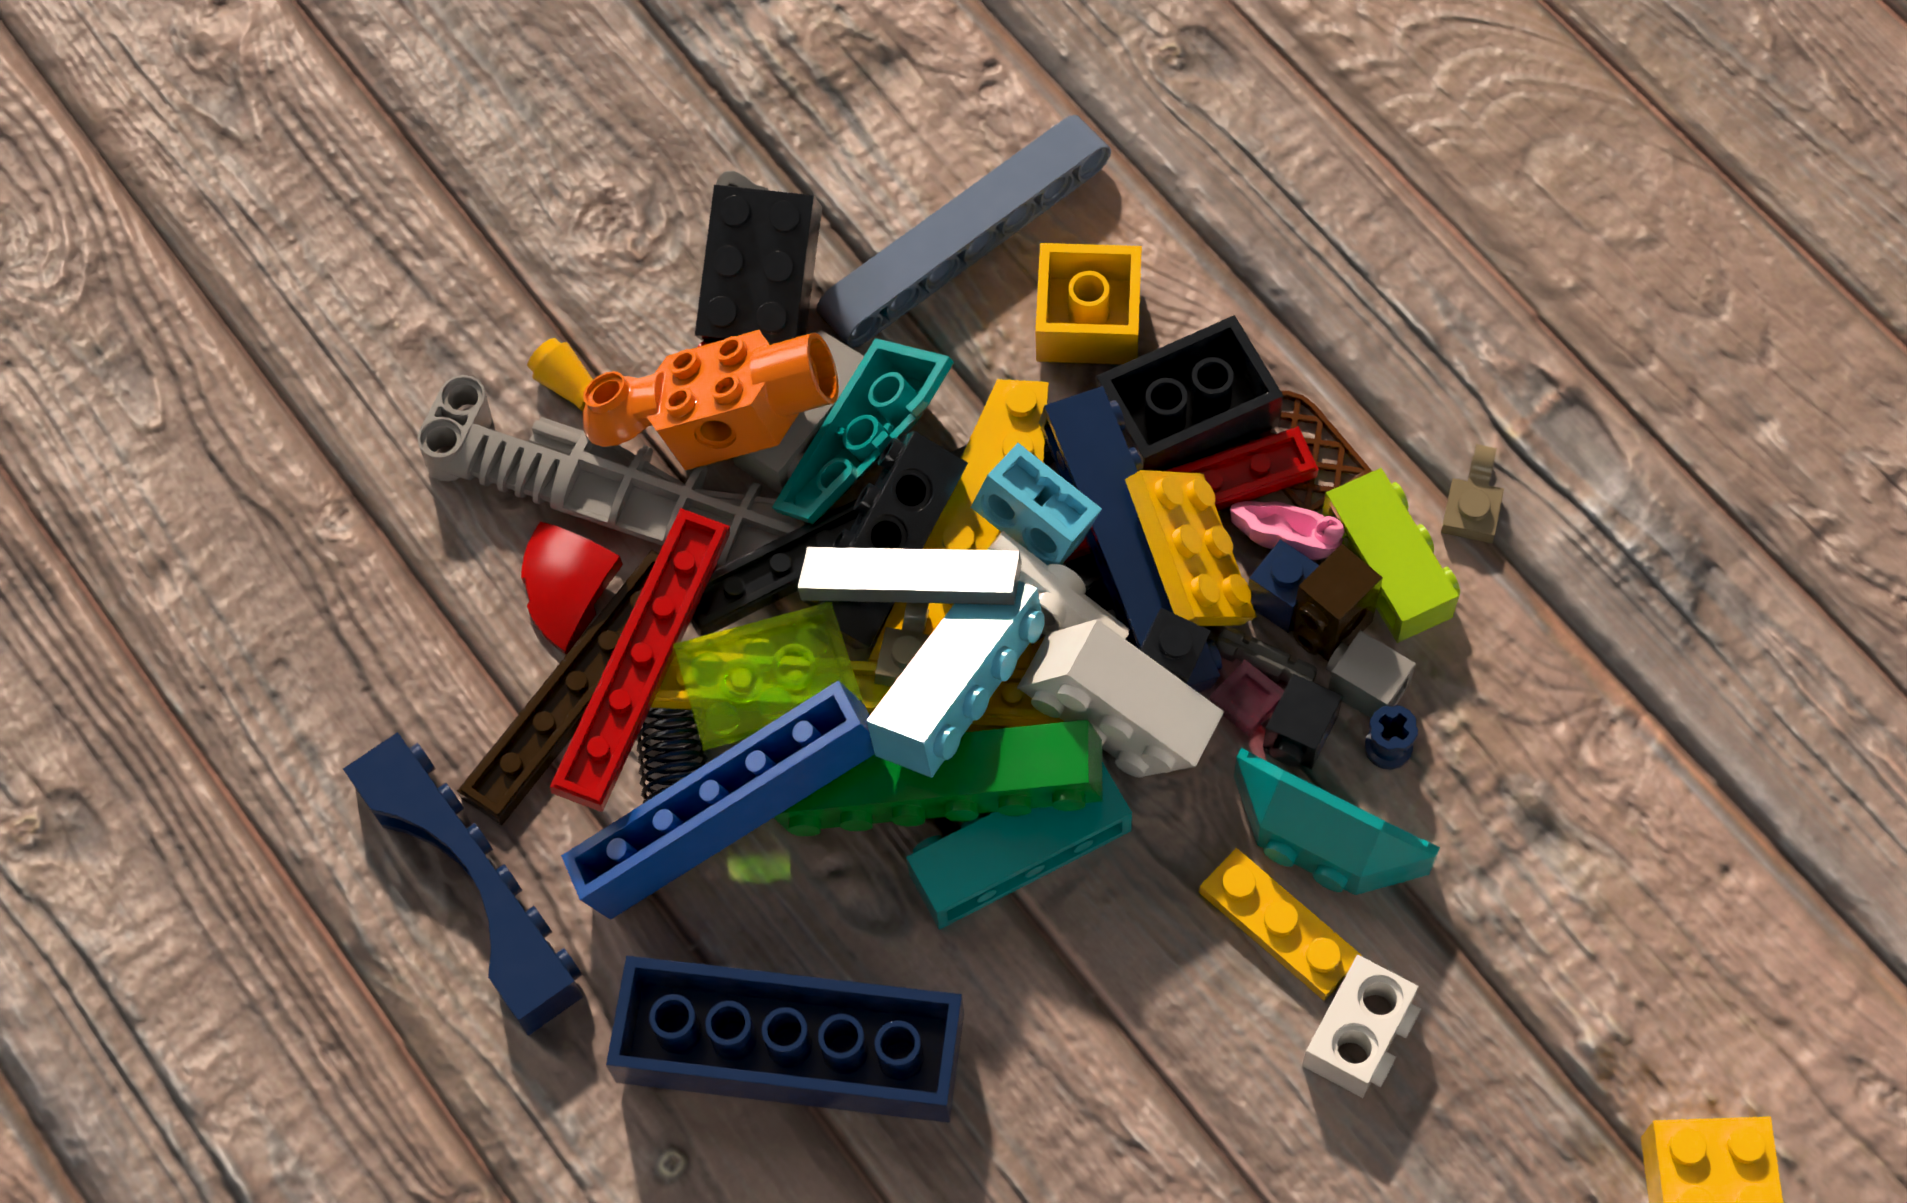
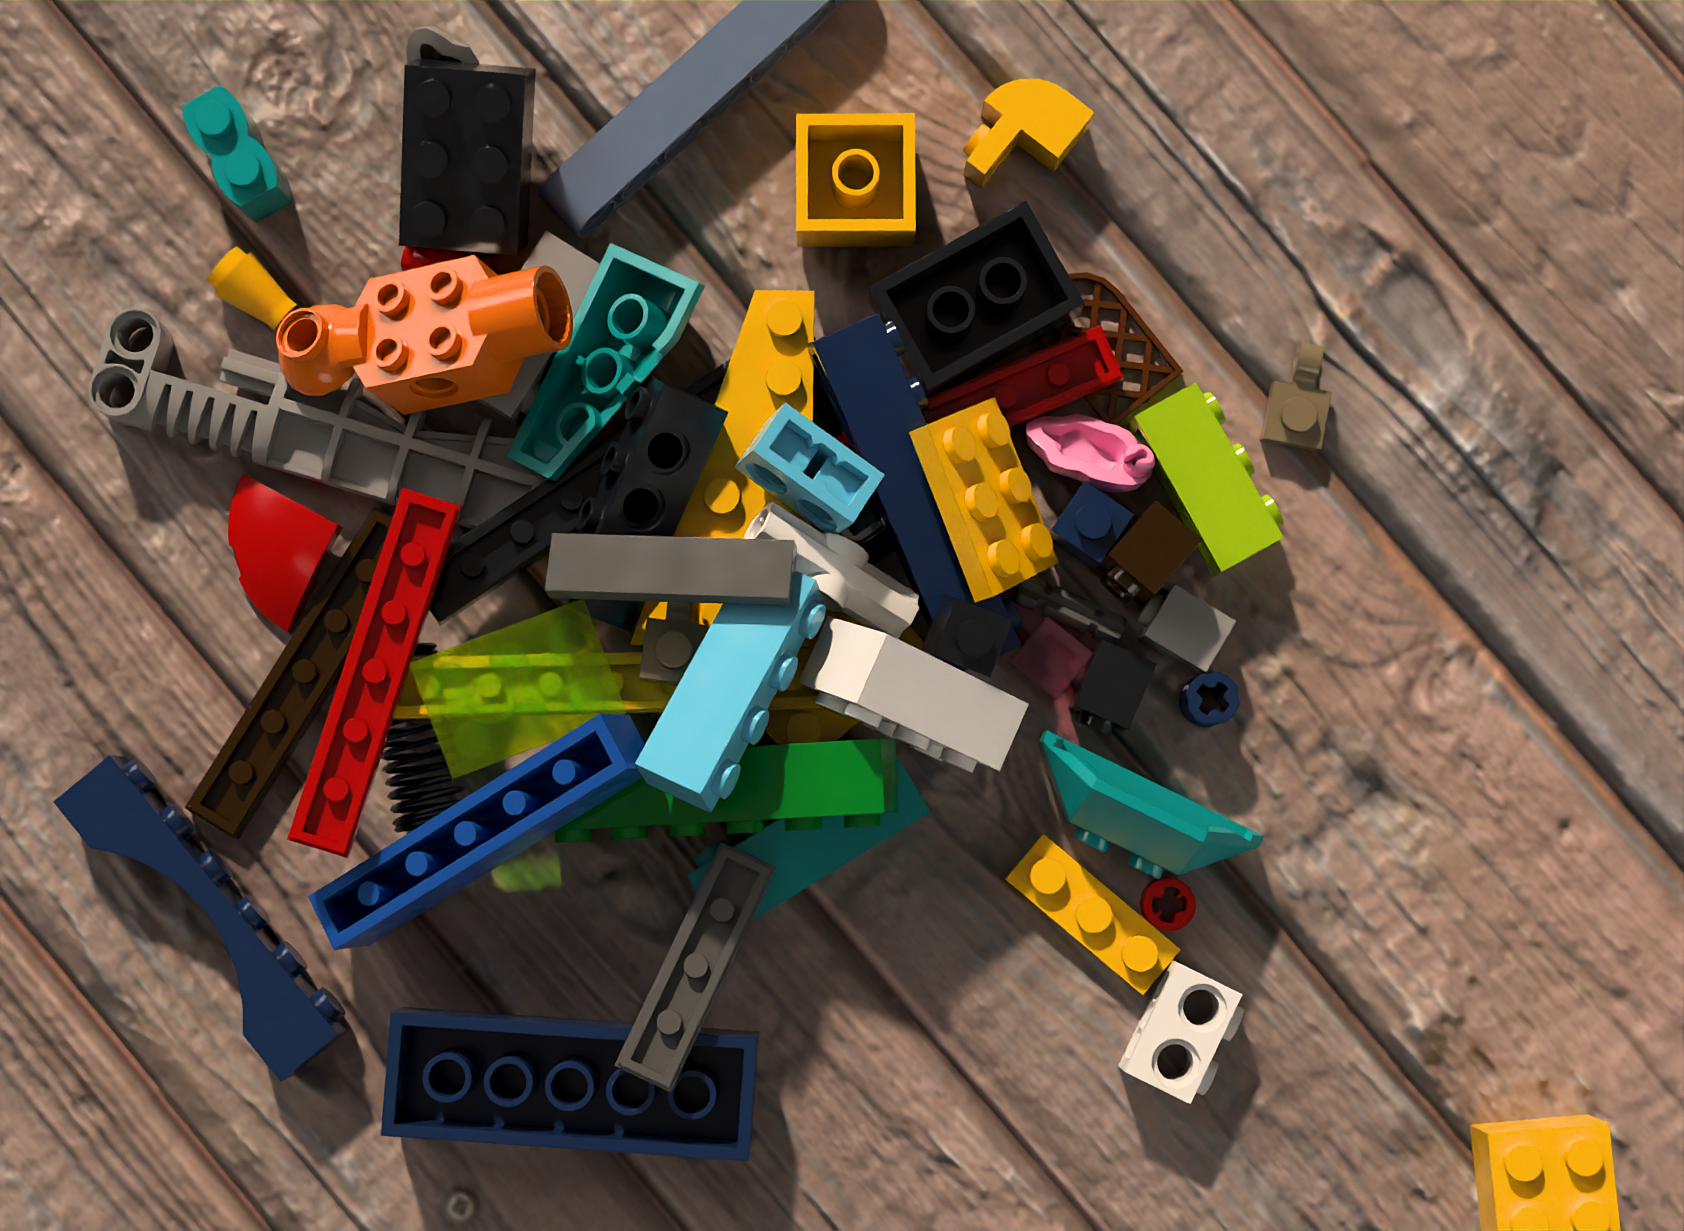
camera: 10 degrees left, 20 degrees up
(564, 269) = (237, 153): none -> teal brick
(908, 930) = (695, 967): none -> dark grey tile
(1239, 264) = (1026, 114): none -> yellow brick
(1365, 906) = (1178, 918): none -> red bush

